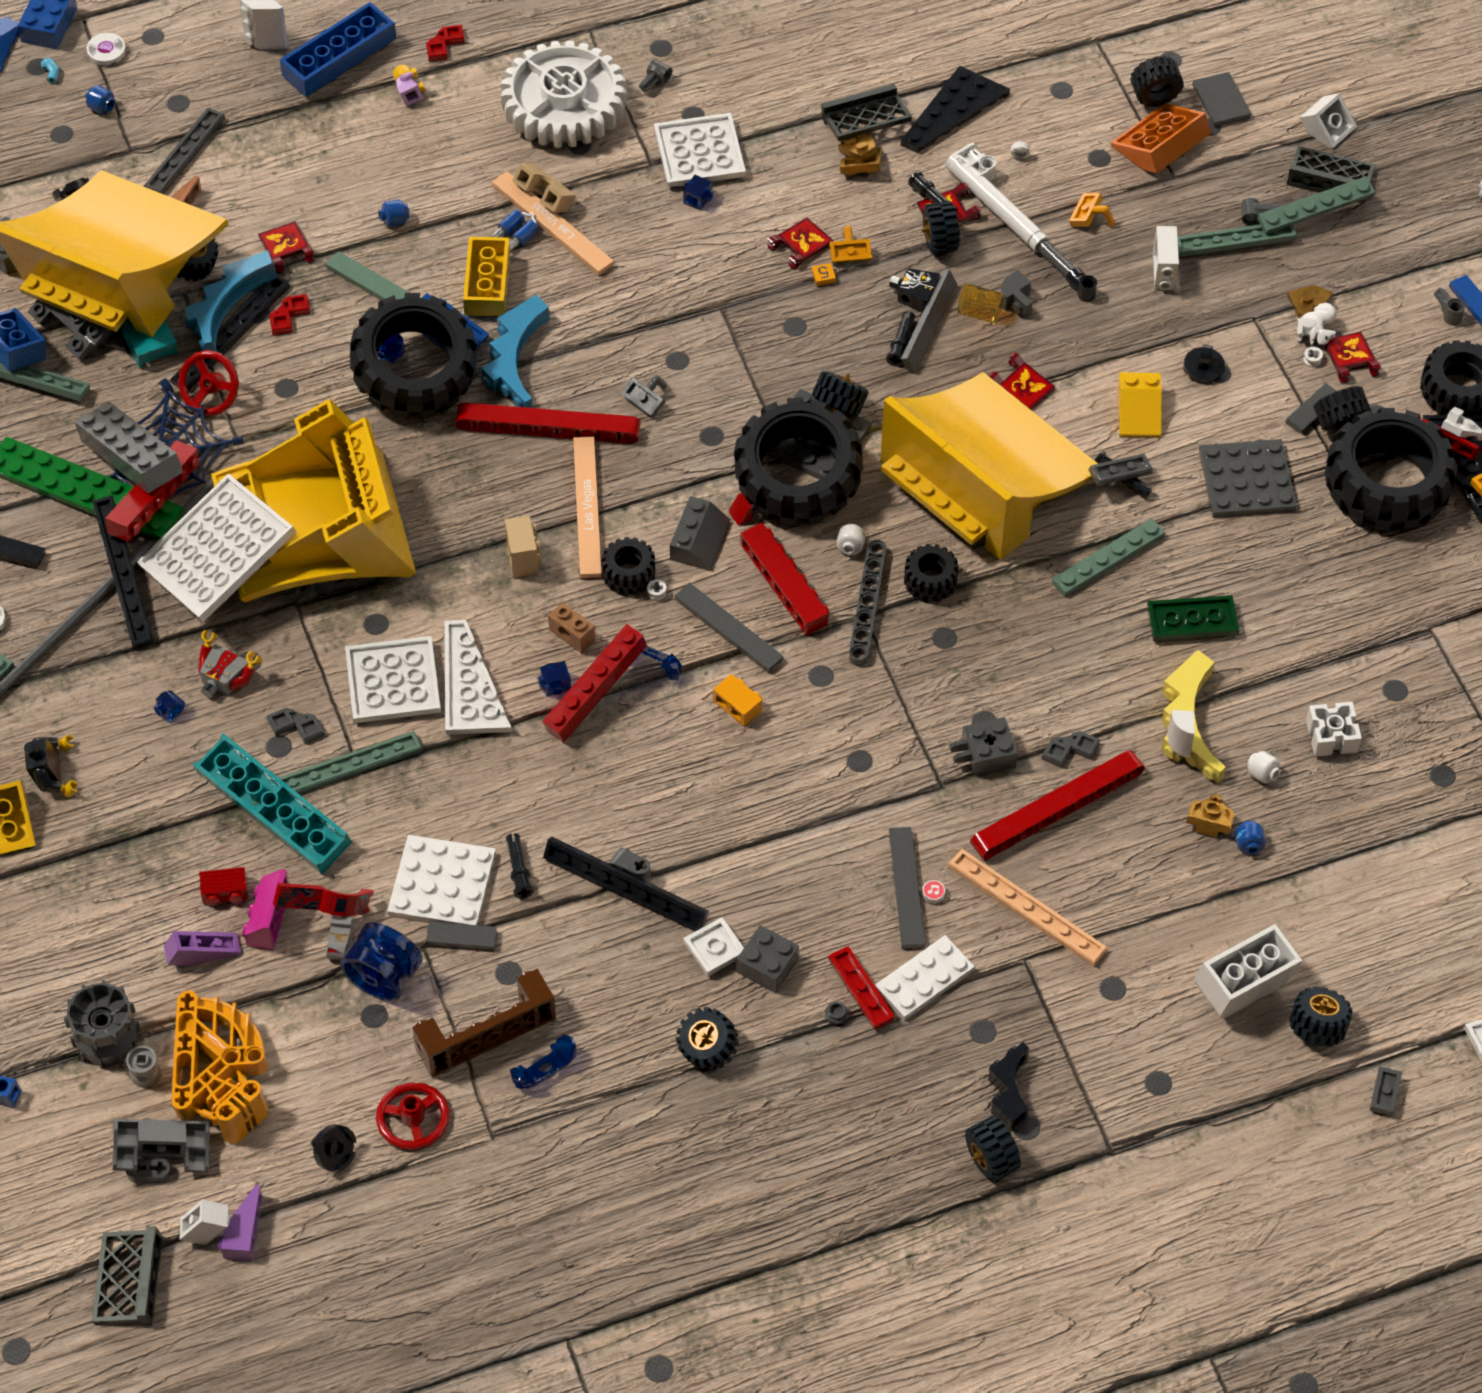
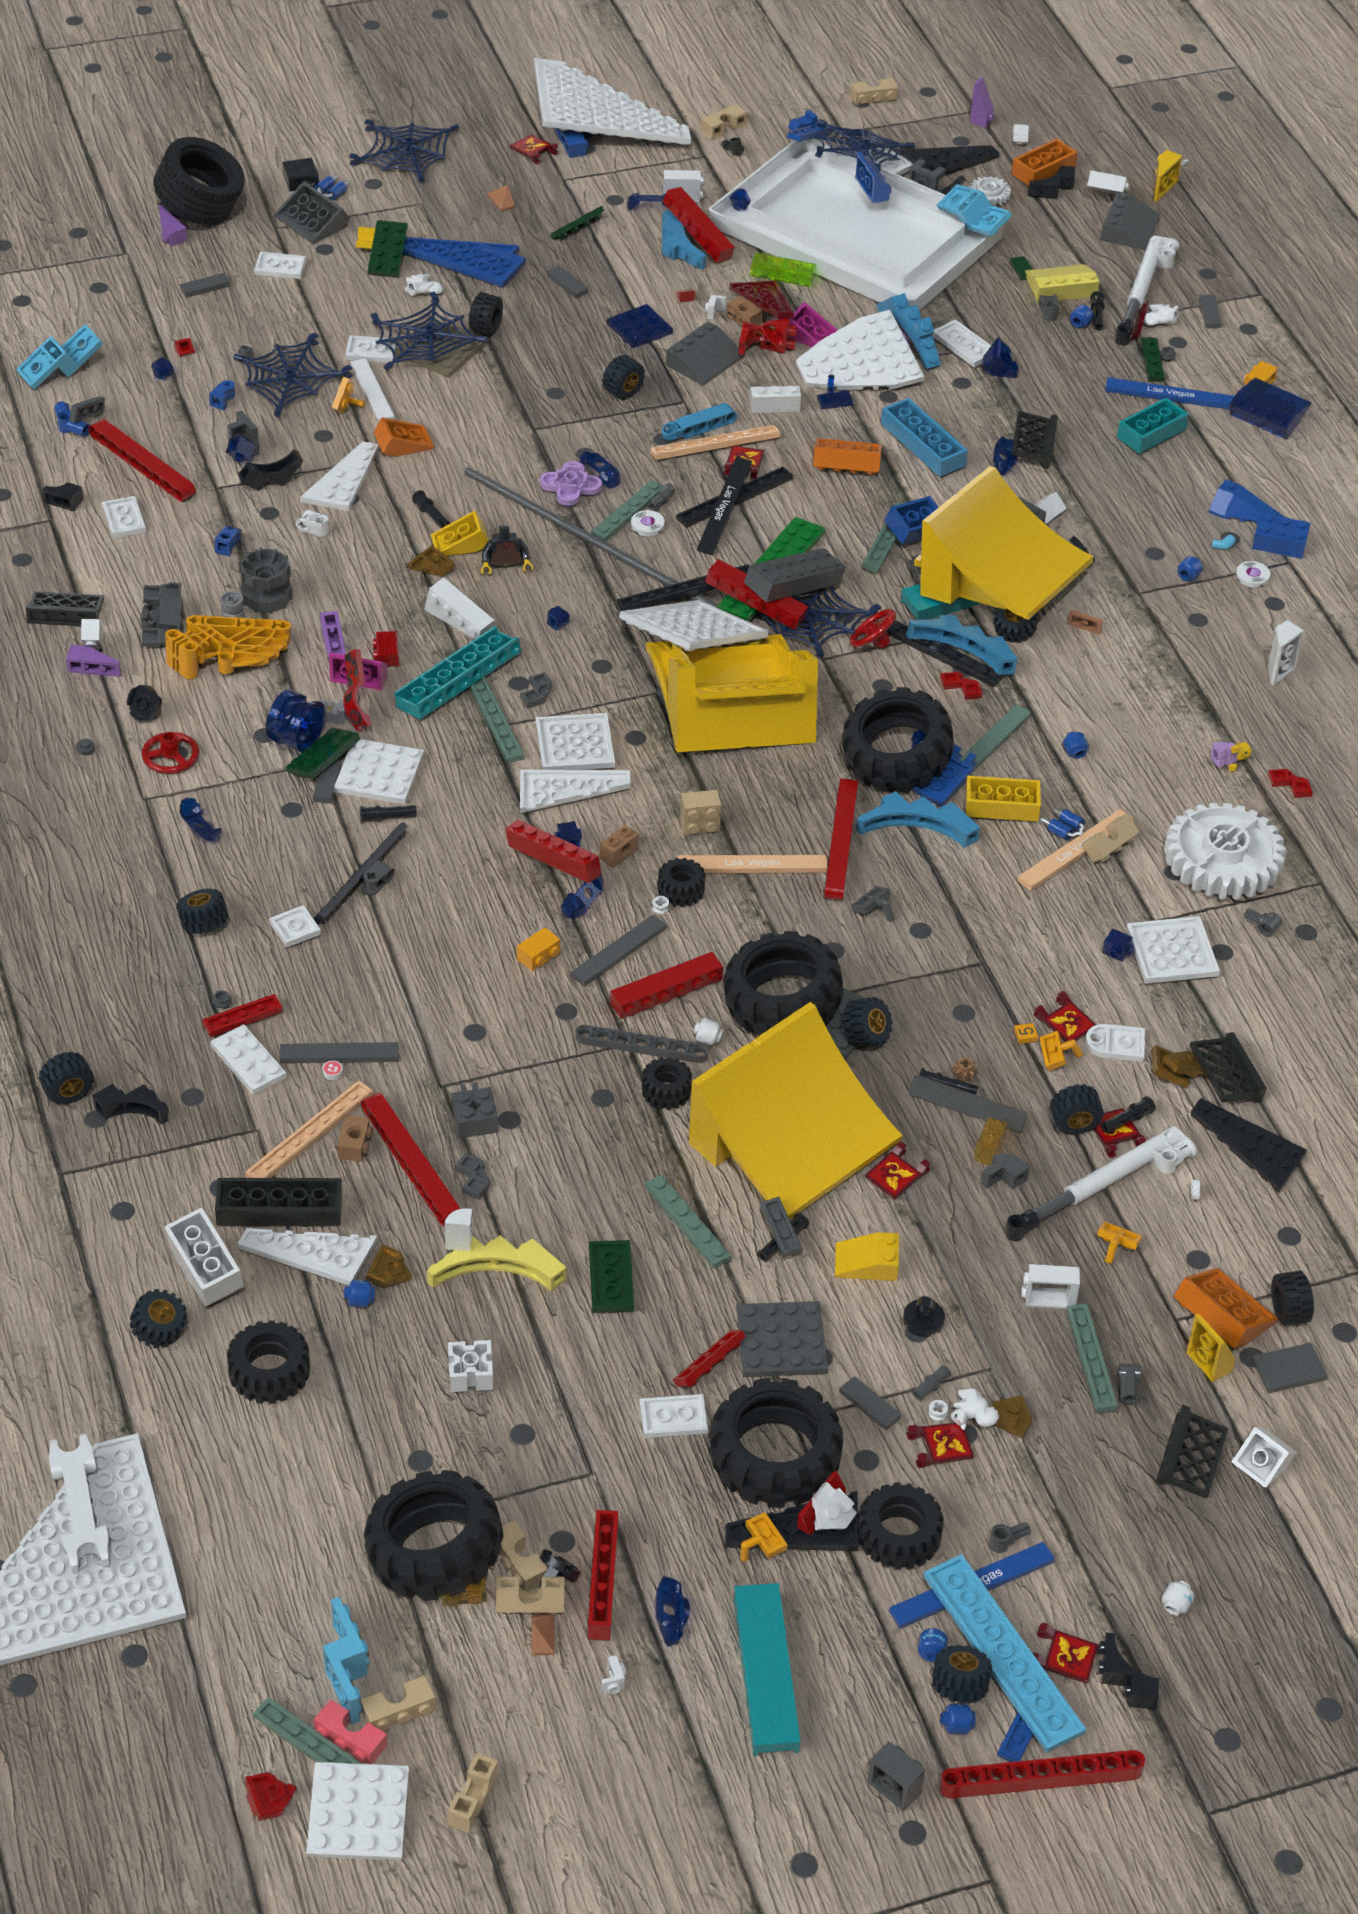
camera: 90 degrees right, 10 degrees down
(52, 847) = (432, 562): none -> pearl gold wing
(157, 809) = (456, 609): none -> white wedge
(185, 151) = (1139, 622): dark grey tile -> none
(223, 669) = (590, 645): torso -> none
(285, 242) = (1039, 682): flag -> none
(338, 49) = (1265, 707): blue brick -> none
(403, 1215) = (85, 746): none -> dark grey plate
(437, 946) = (322, 752): none -> dark green plate
(532, 1011) = (251, 810): reddish brown plate -> none
(699, 534) = (717, 930): dark grey slope -> none
(767, 959) = (276, 955): dark grey brick -> none
(828, 200) = (1117, 1042): none -> white tile
(883, 322) = (965, 1069): none -> medium nougat gear
(915, 288) = (1008, 1091): black torso -> none
(1027, 865) = (354, 1138): none -> medium nougat brick
(1141, 920) = (279, 1201): none -> pearl dark grey brick
(1199, 879) = (315, 1252): none -> white wing
(1224, 145) = (1209, 1350): none -> yellow slope
(1263, 767) = (435, 1311): white head -> none
(1284, 359) = (931, 1382): none -> dark grey pin
(1285, 532) = (714, 1354): none -> red plate
(1316, 205) = (1132, 1422): sand green plate -> none
(1341, 407) = (853, 1408): black tyre -> none
(1351, 932) = (273, 1383): none -> black tyre
(1354, 564) = (673, 1416): none -> white tile
(1385, 1091) = (81, 1367): dark grey plate -> none

